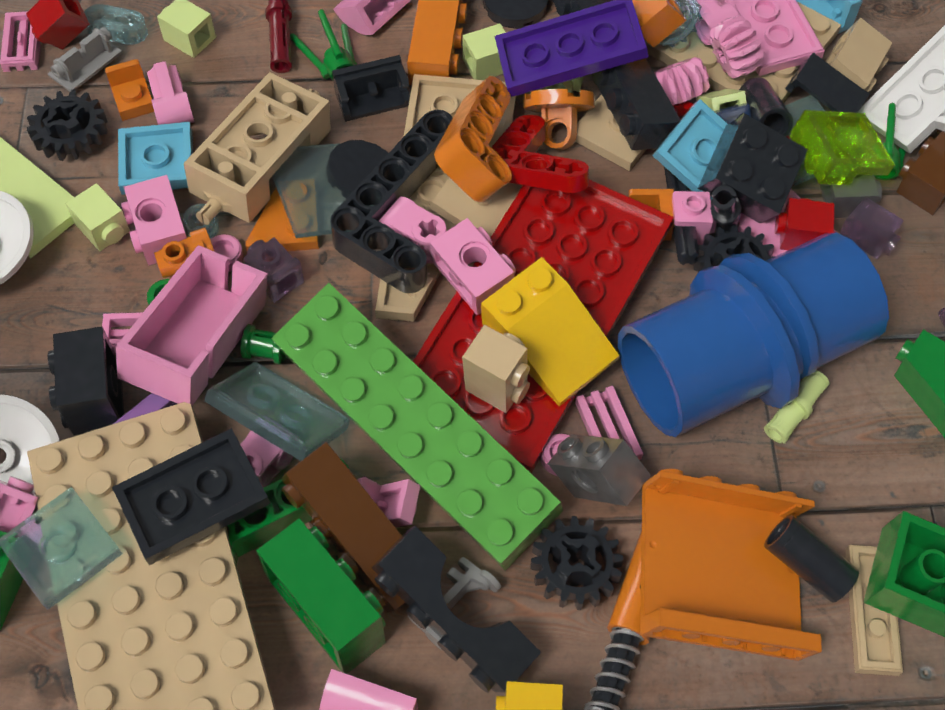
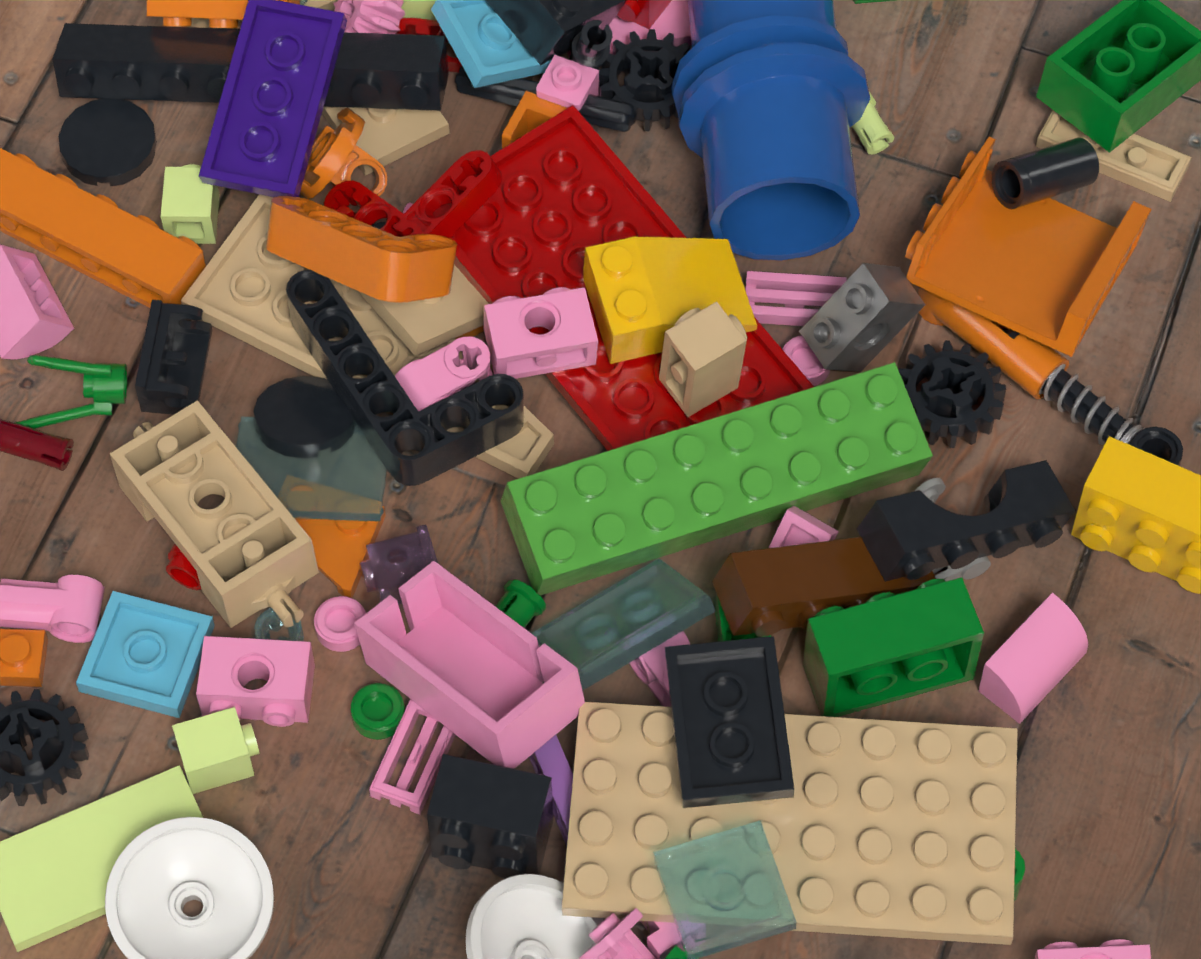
camera: 65 degrees left, 0 degrees up
(175, 253) = (334, 647): orange plate -> none

